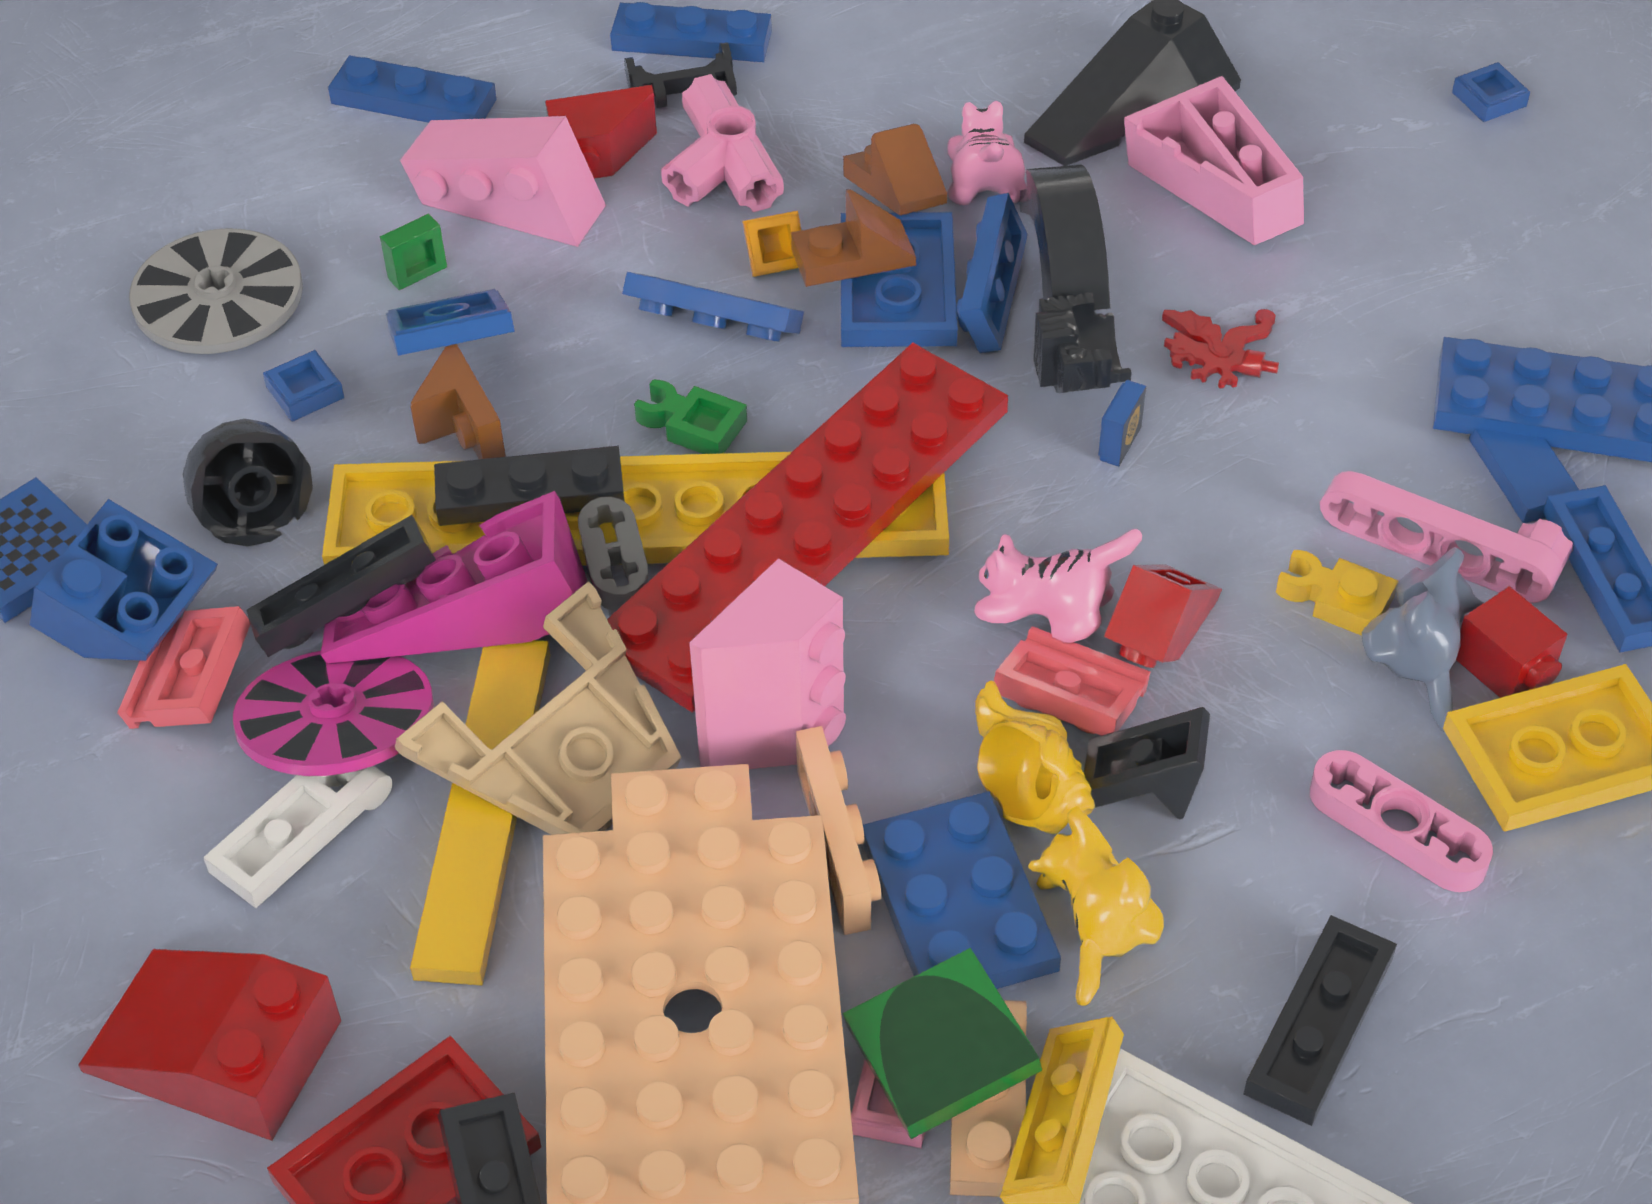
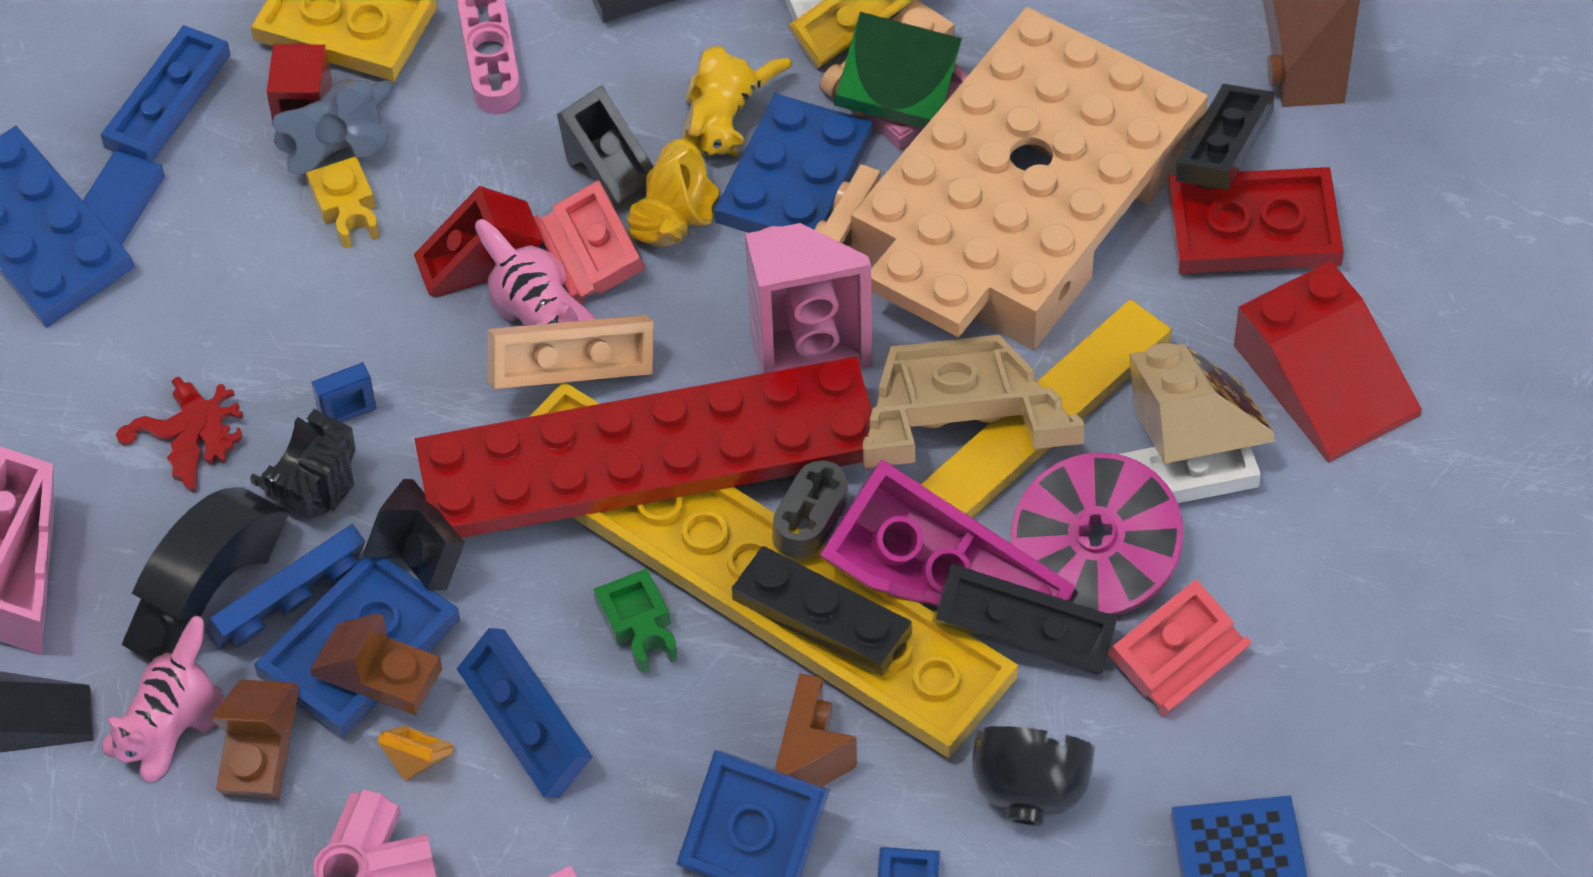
camera: 140 degrees left, 5 degrees up
(118, 587) = (1197, 723): blue slope -> none
(307, 867) = (1193, 404): none -> tan slope
(949, 341) = (416, 533): none -> black slope
(962, 547) = (570, 351): none -> light nougat plate
(1530, 557) = (217, 128): bright pink beam -> none

